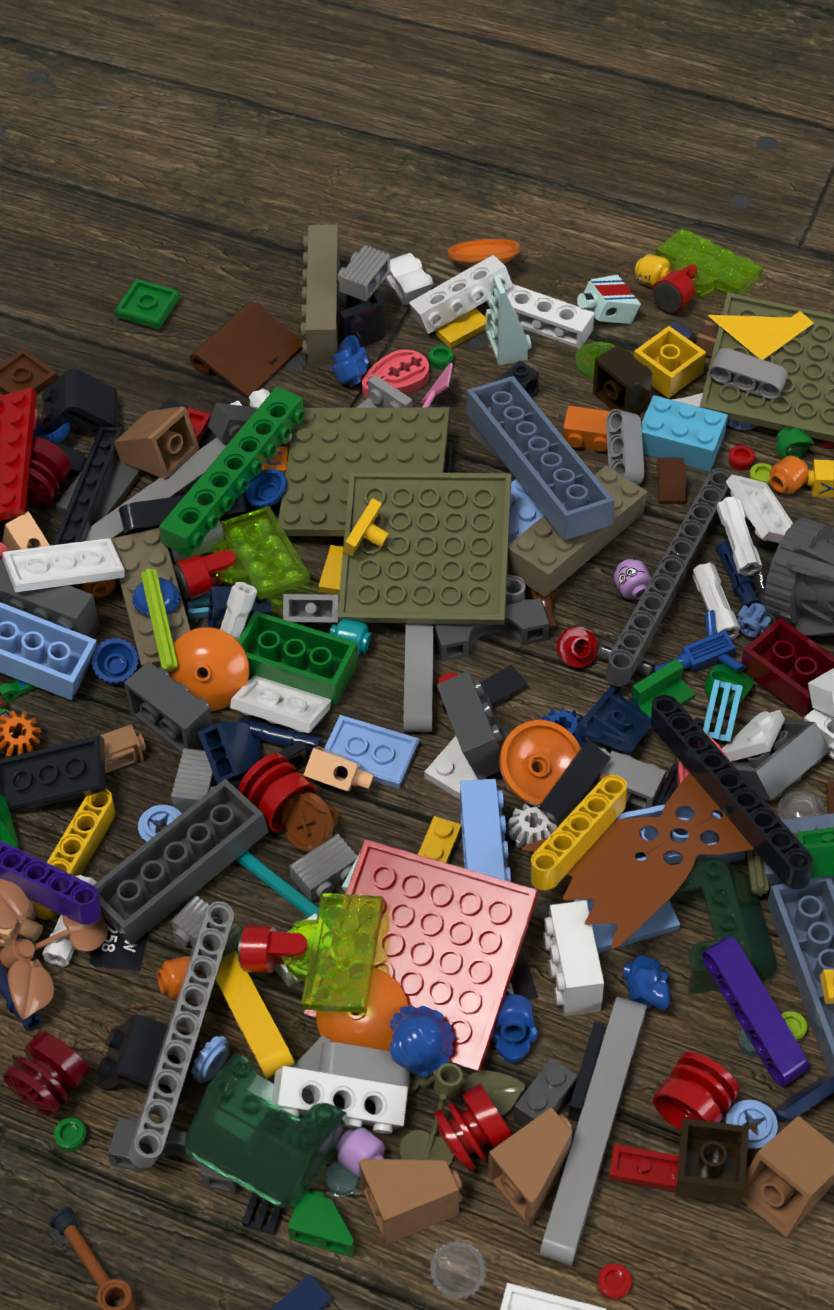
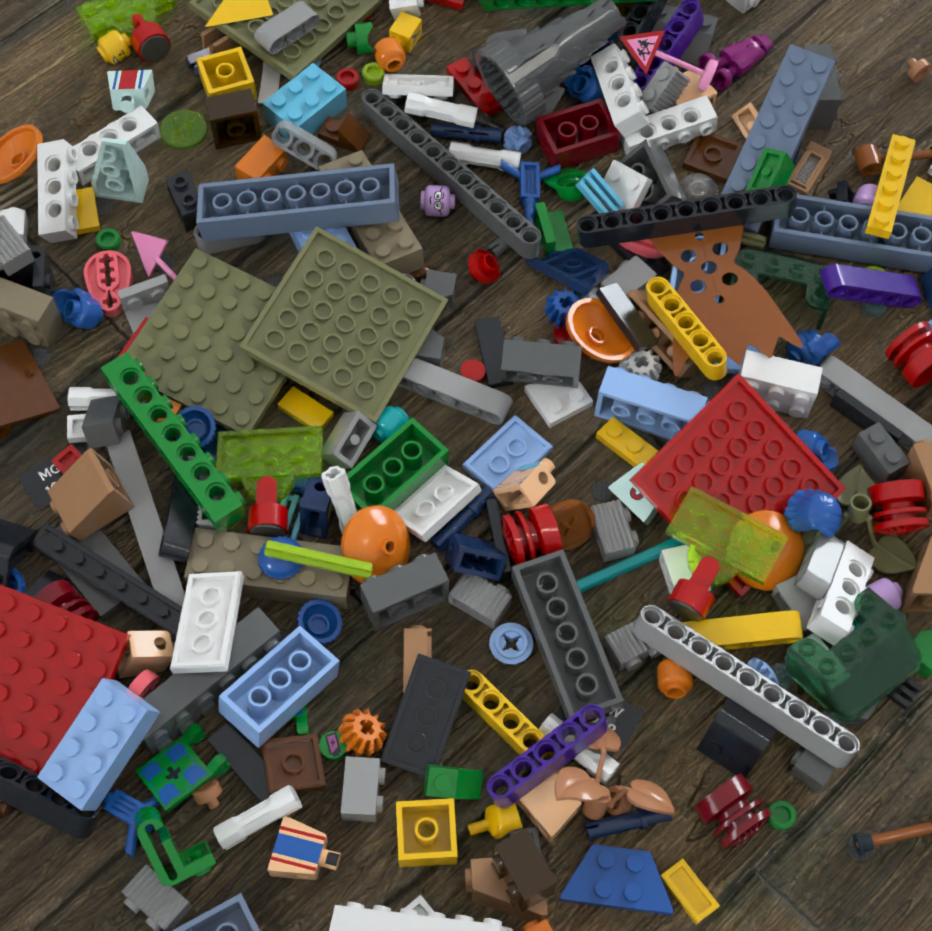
camera: 70 degrees left, 10 degrees up
(366, 529) = (311, 358): yellow tile -> none

